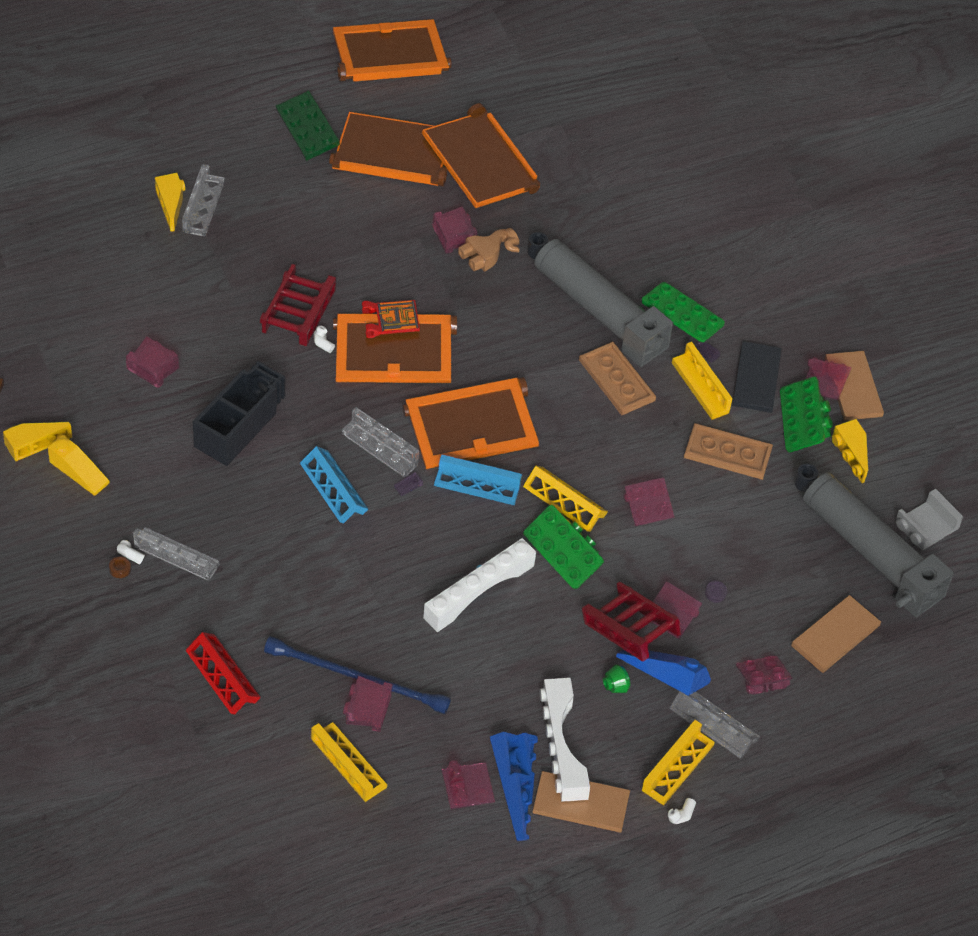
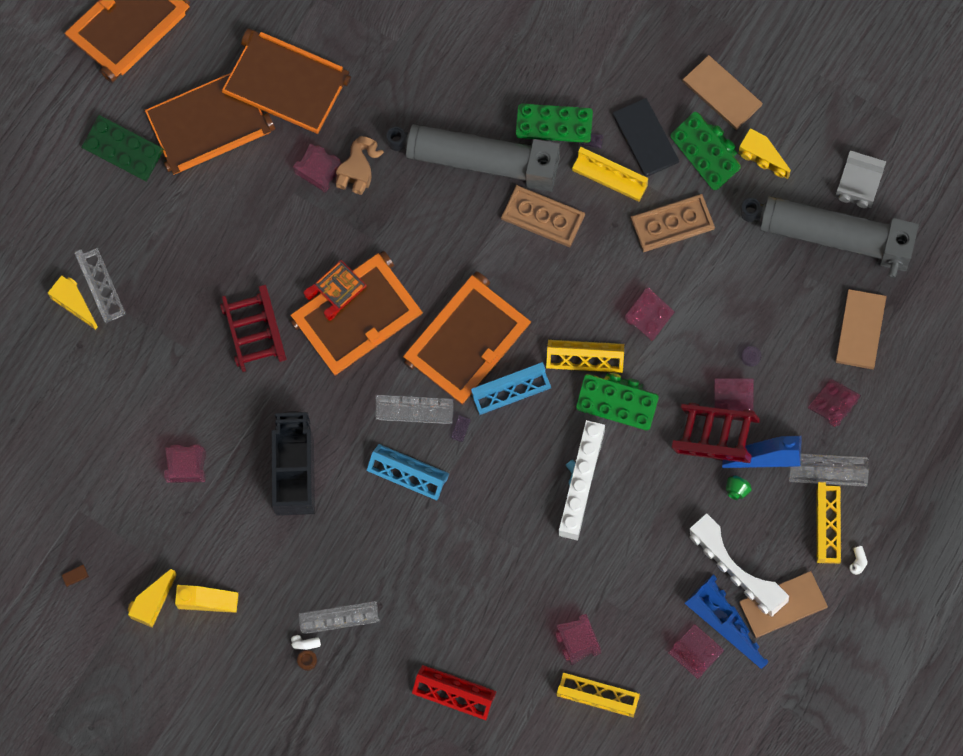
camera: 25 degrees left, 20 degrees up
(276, 647) = (625, 601): dark blue hose -> none
(321, 340) = (294, 347): white arm -> none
(830, 376) = (701, 100): clear pink hinge -> none

